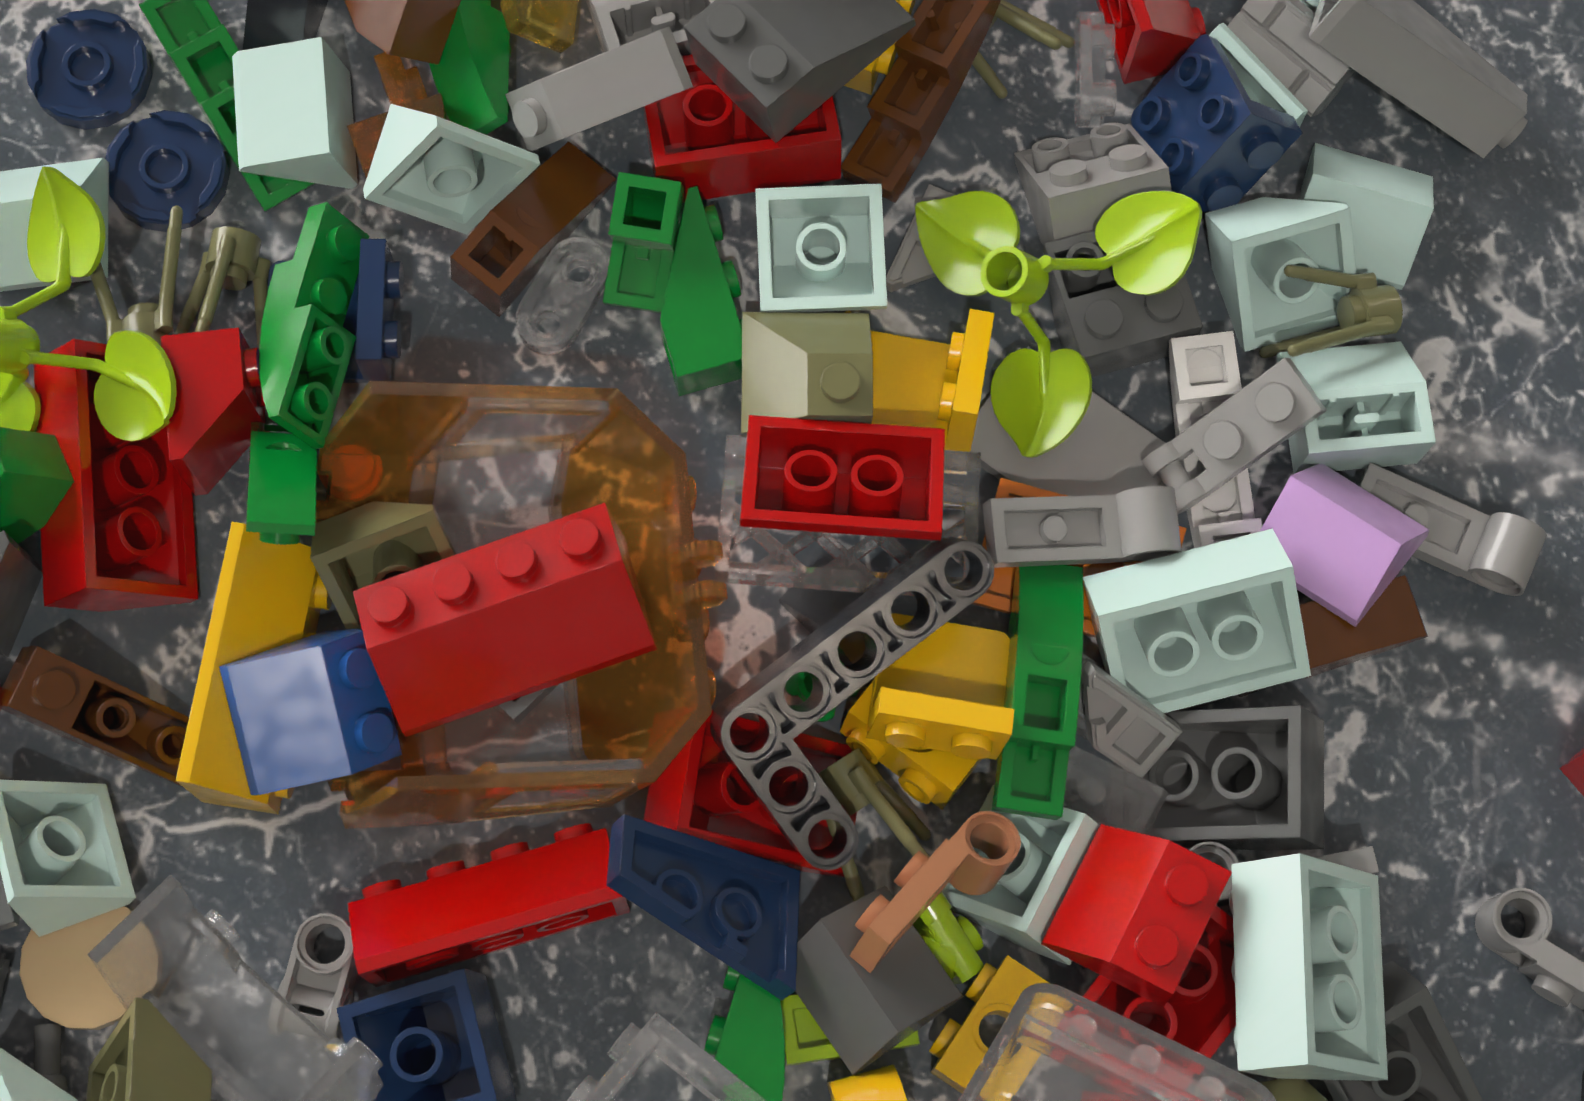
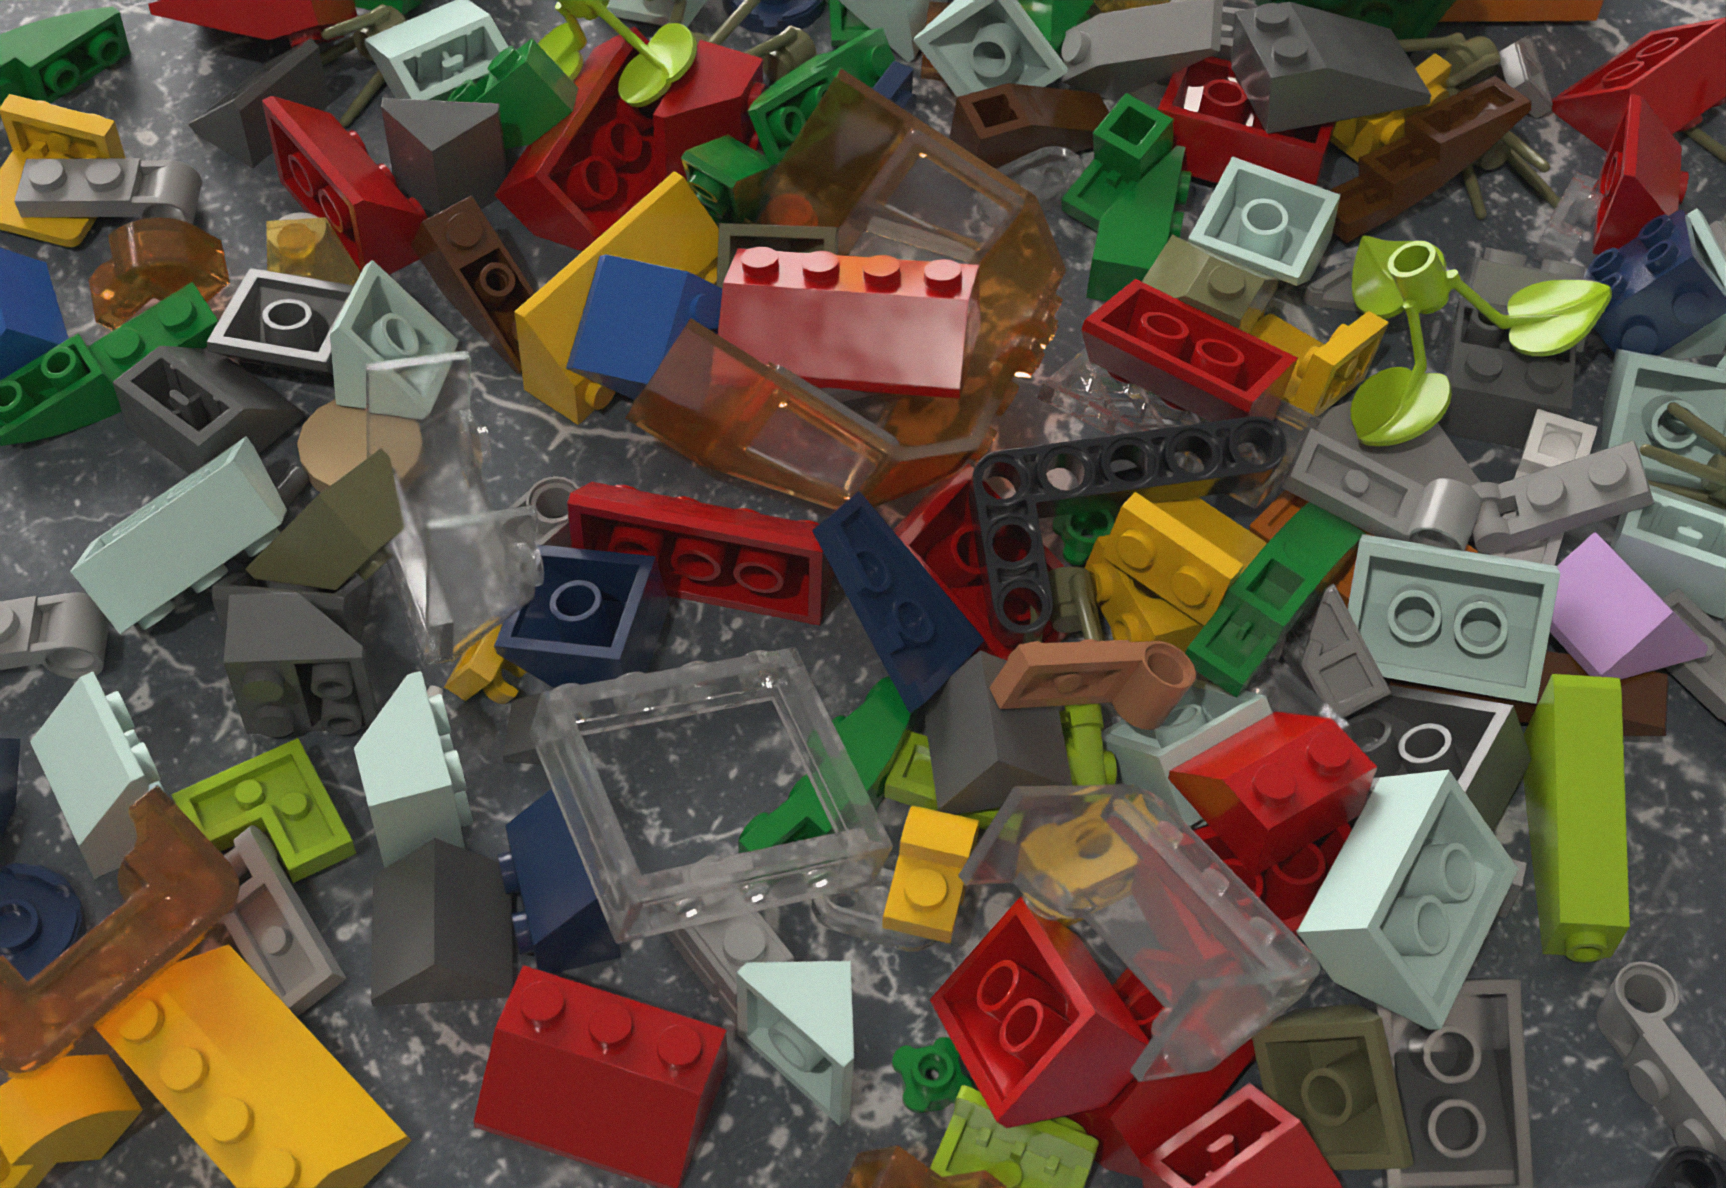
camera: 30 degrees right, 20 degrees down
(1393, 769) = (1578, 816): none -> lime slope

